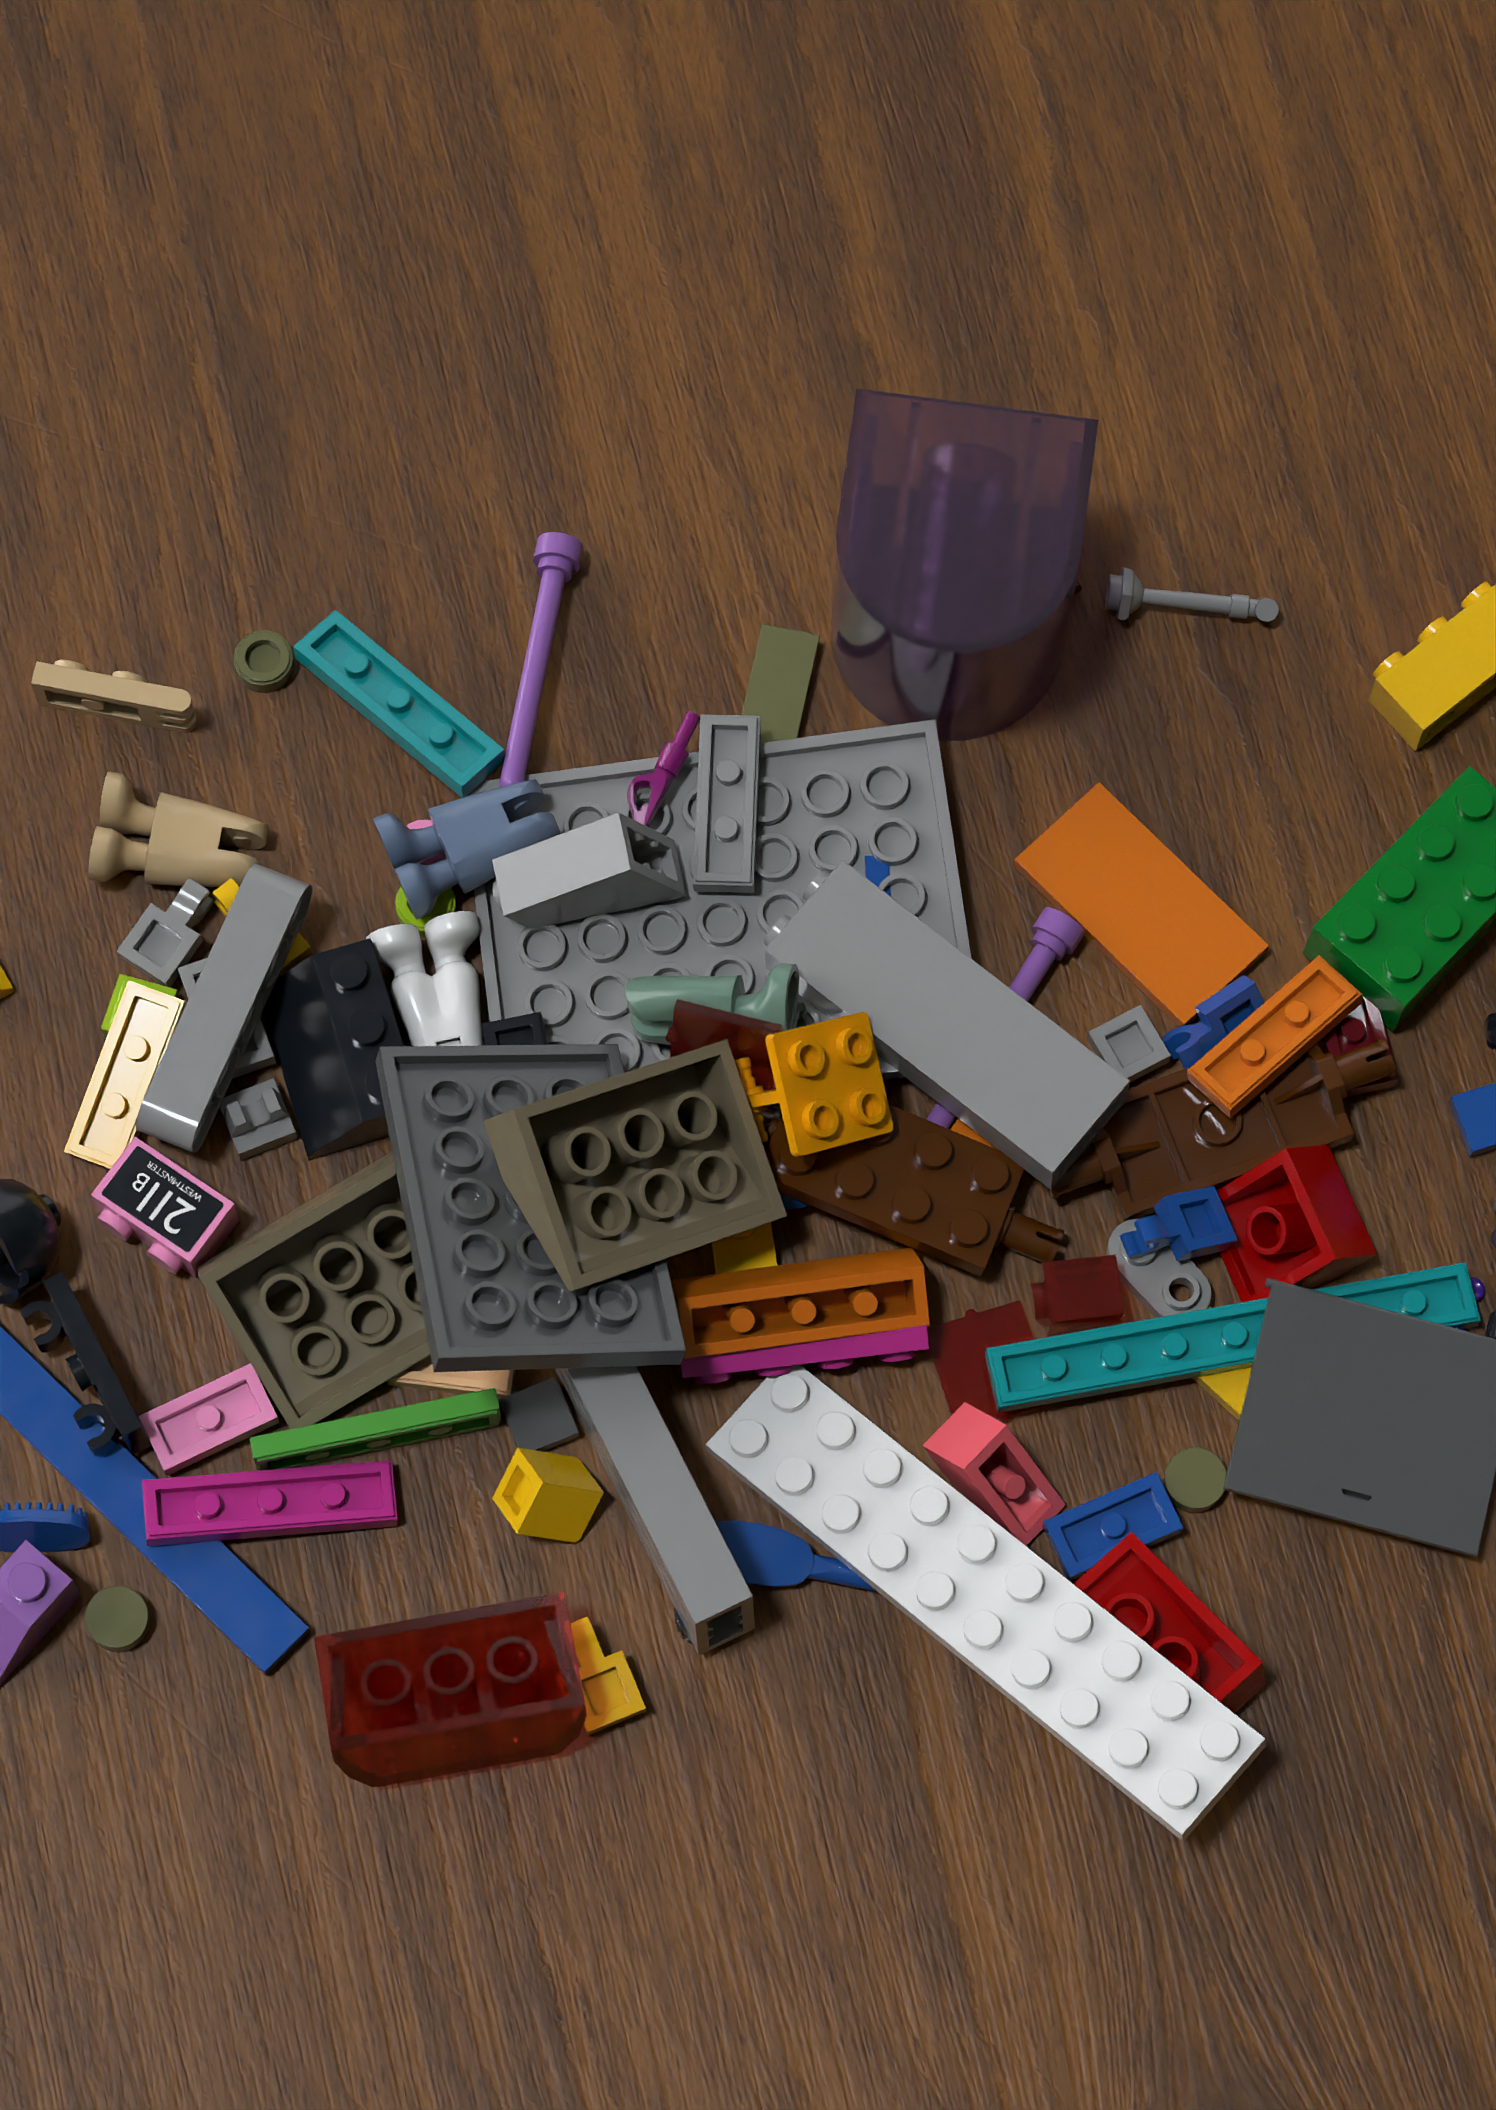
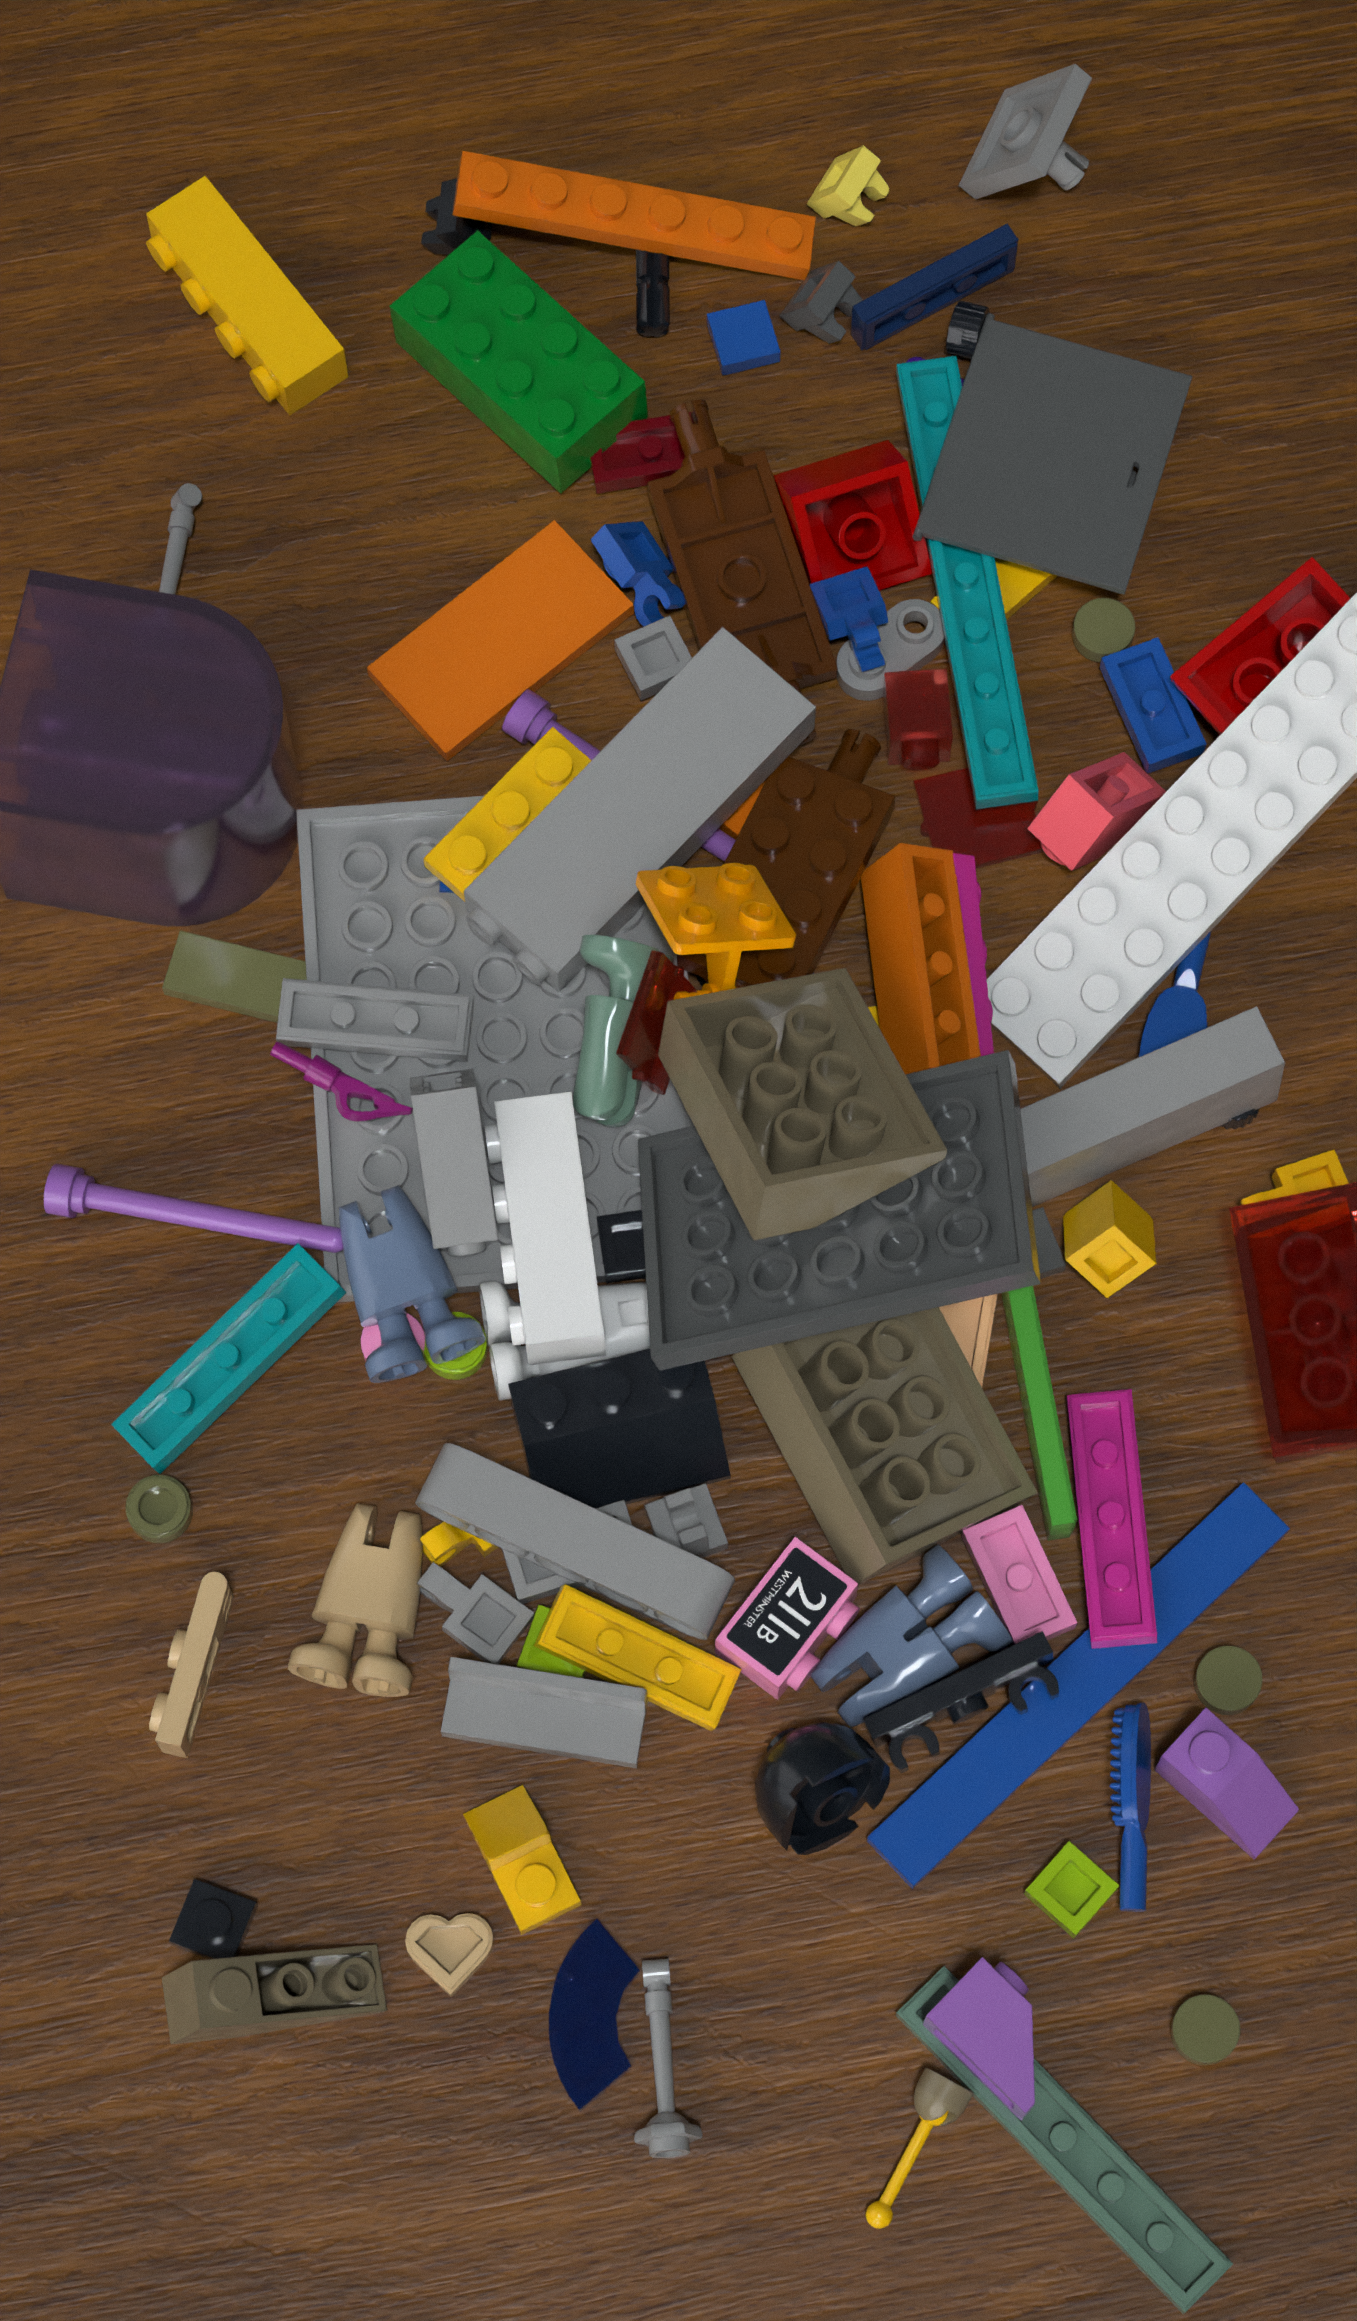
camera: 85 degrees left, 0 degrees up
(75, 1001) = (544, 1712): none -> light grey panel
(142, 1316) = (900, 1648): none -> sand blue piece
(519, 962) = (549, 1229): none -> white brick
(942, 905) = (505, 811): none -> yellow plate
(1274, 1036) = (662, 511): orange tile -> none

